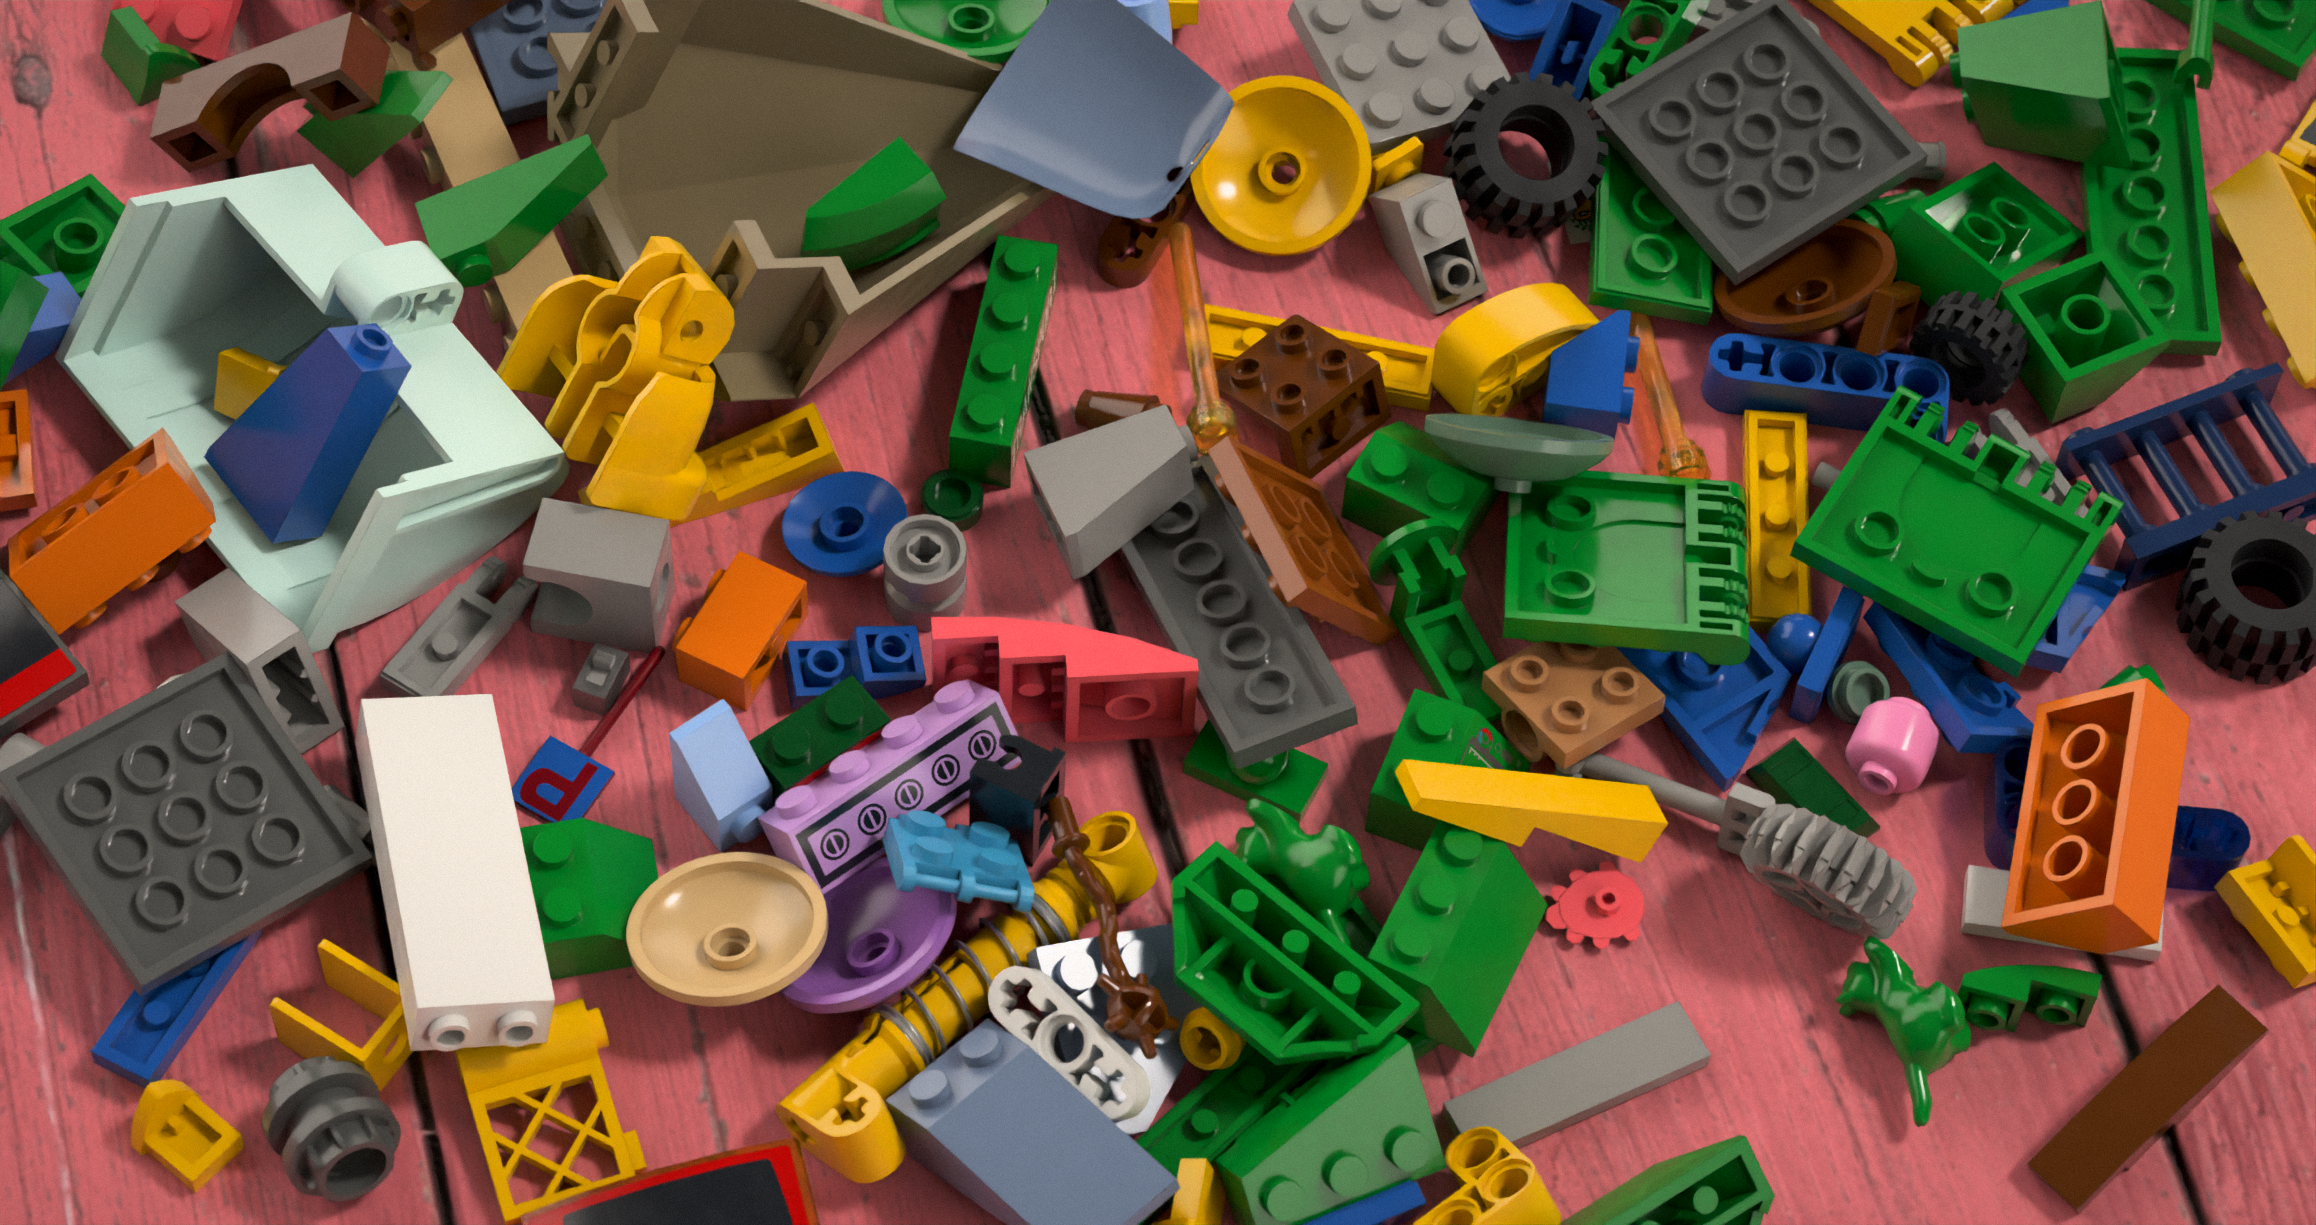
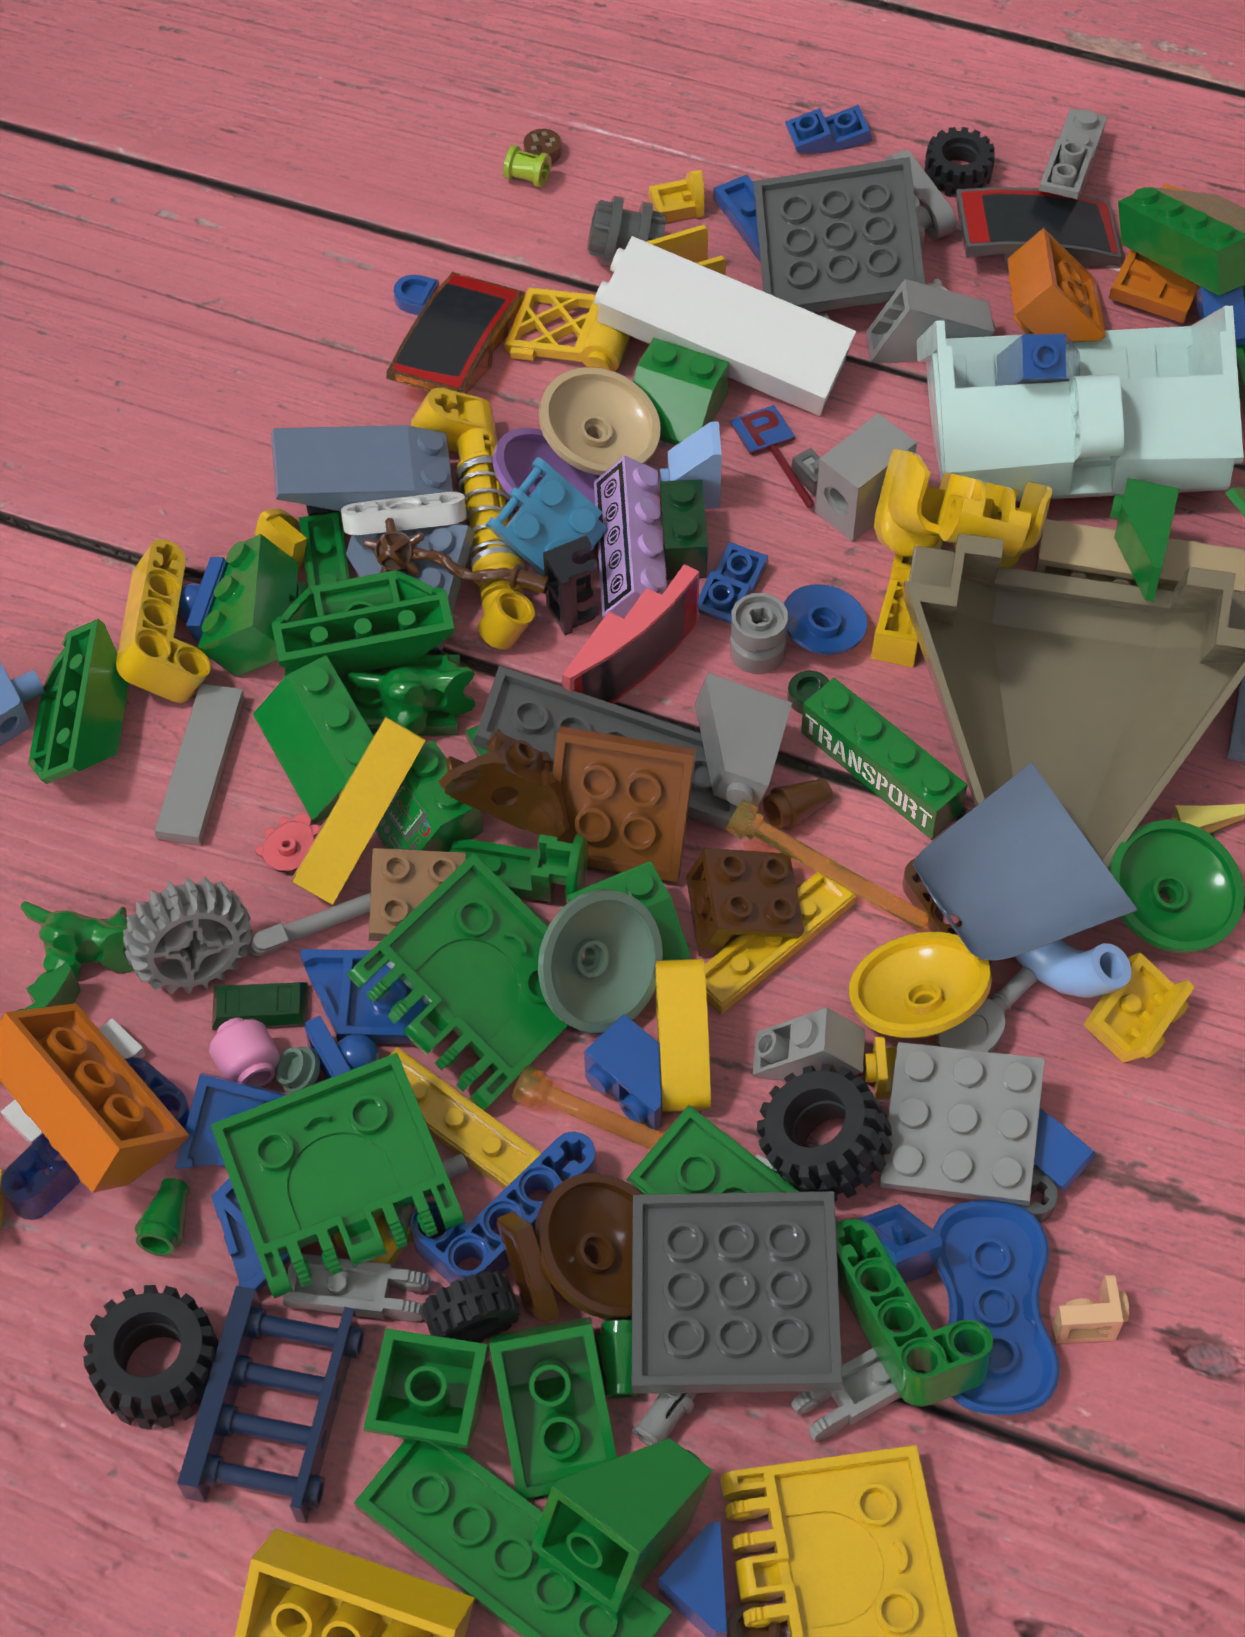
camera: 130 degrees right, 0 degrees up
(458, 634) = (877, 396): light grey hinge -> none
(740, 629) = (791, 538): orange brick -> none
(875, 209) = (1026, 723): green slope -> none
(1413, 656) = (510, 785): none -> reddish brown piece

